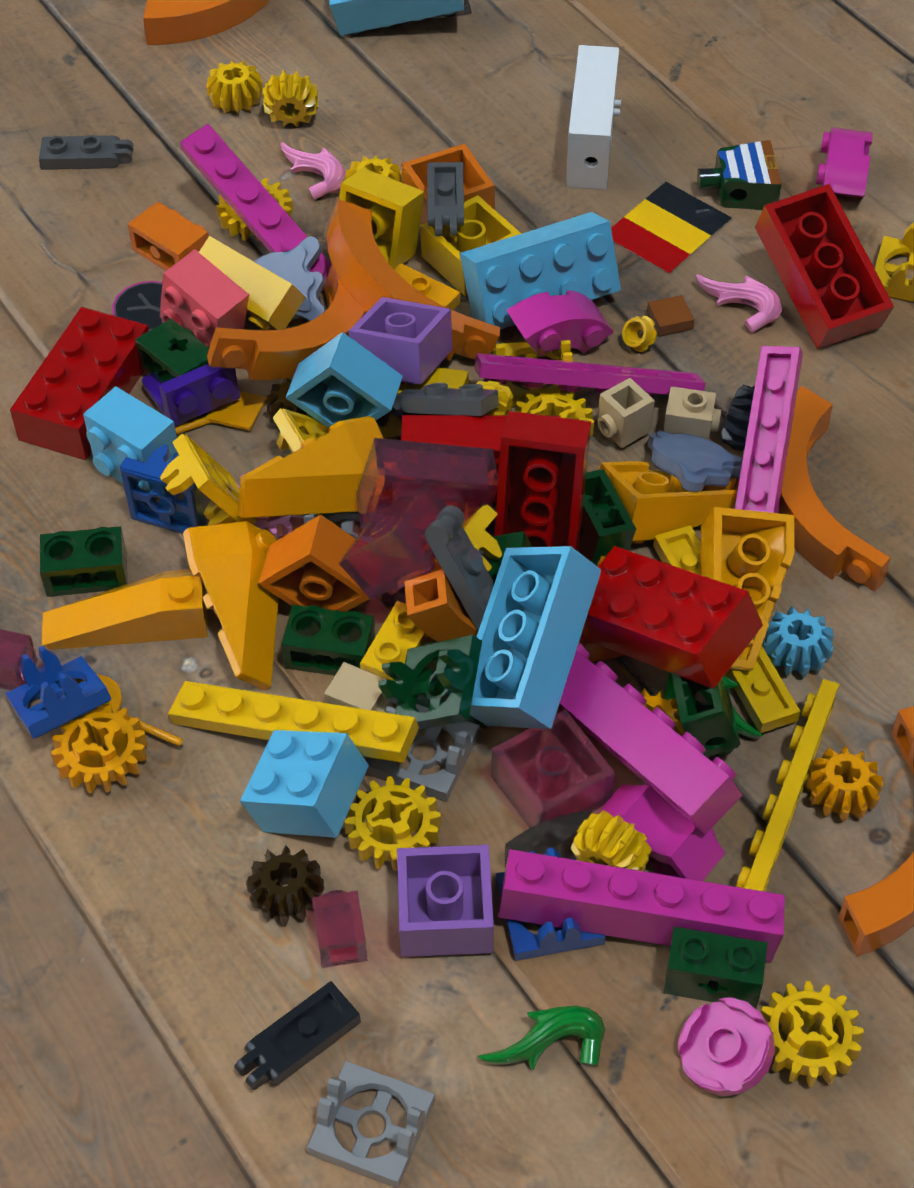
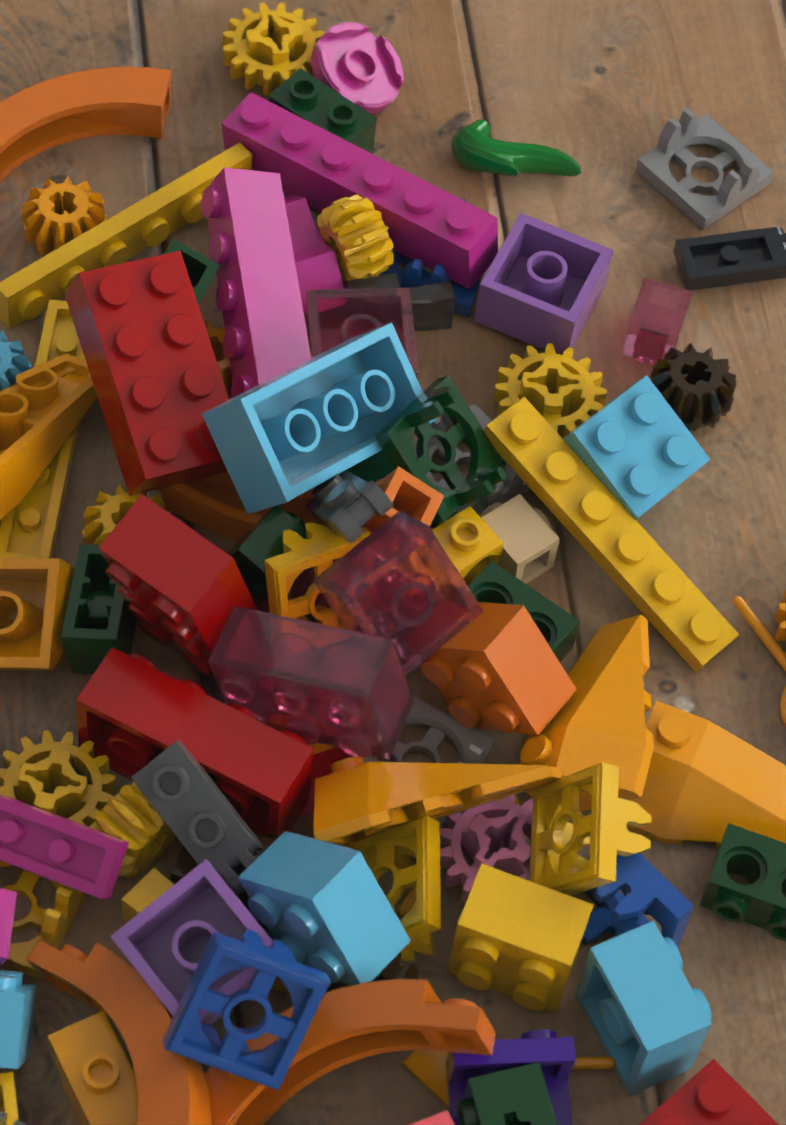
camera: 160 degrees left, 5 degrees up
(229, 434) = (518, 939): none -> yellow brick
(352, 298) = (201, 1043): none -> blue piece

